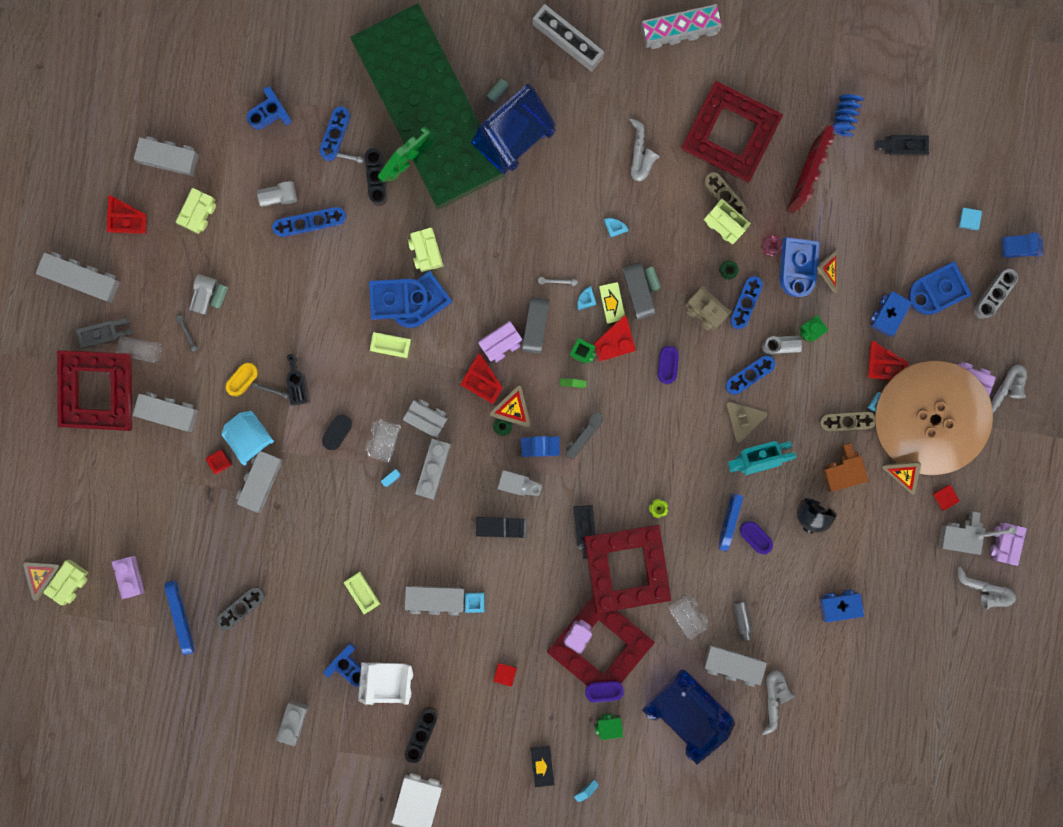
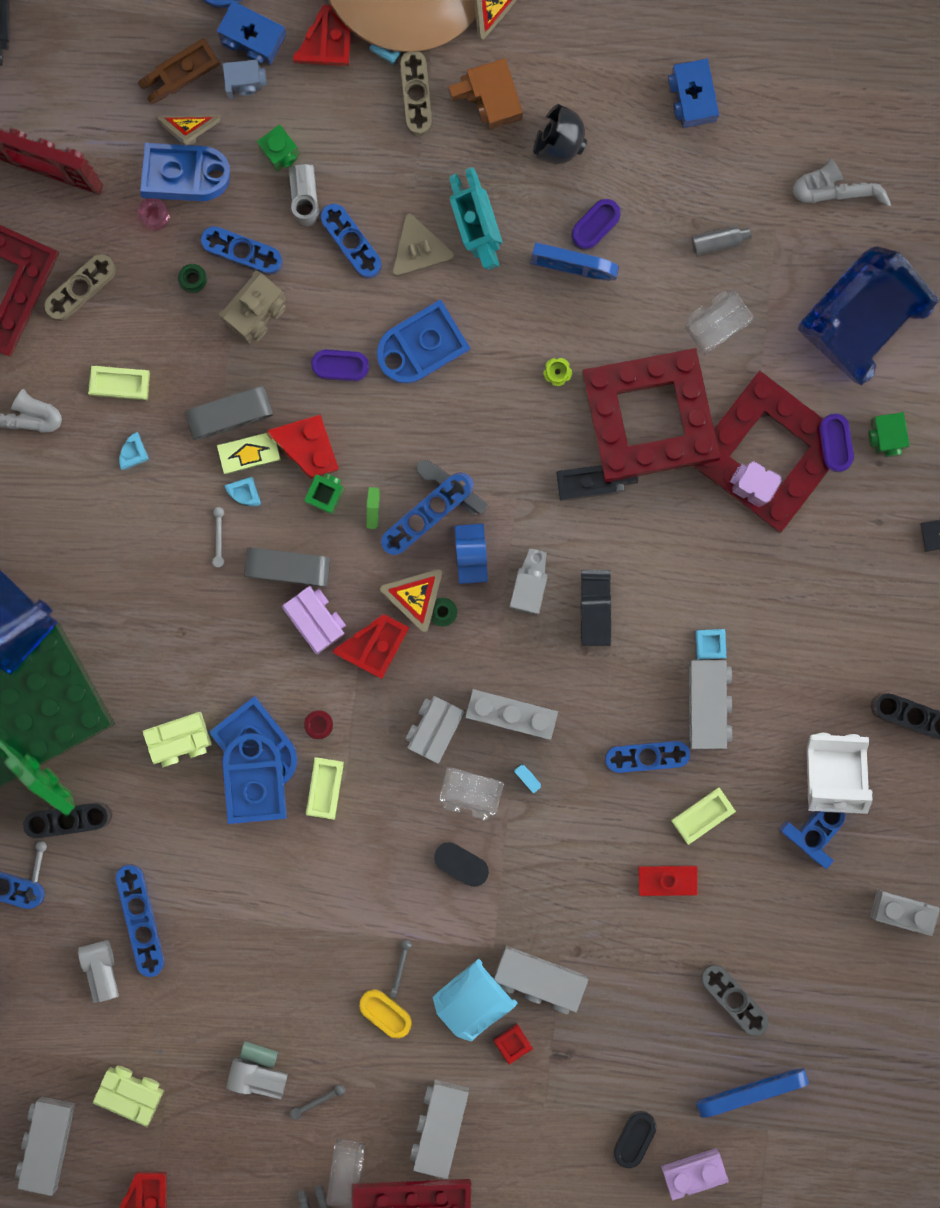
camera: 90 degrees left, 0 degrees up
(153, 539) = (635, 1139): none -> black tile
(297, 392) = (396, 933): black piece -> none
(320, 567) = (667, 880): none -> red plate
(409, 562) = (668, 747): none -> blue beam
(431, 342) = (318, 724): none -> dark red plate
(505, 674) = (817, 594): red tile -> none
(567, 418) = (428, 515): none -> blue beam
(652, 279) = (210, 393): sand green piece -> none
(661, 219) = (119, 382): none -> yellowish green tile
(681, 420) = (424, 344): none -> blue tile
(727, 221) = (119, 282): yellowish green brick -> none
(734, 665) = (789, 250): light grey brick -> none
(860, 308) = (243, 78): none -> sand blue brick
(867, 266) = (180, 70): none -> reddish brown hinge

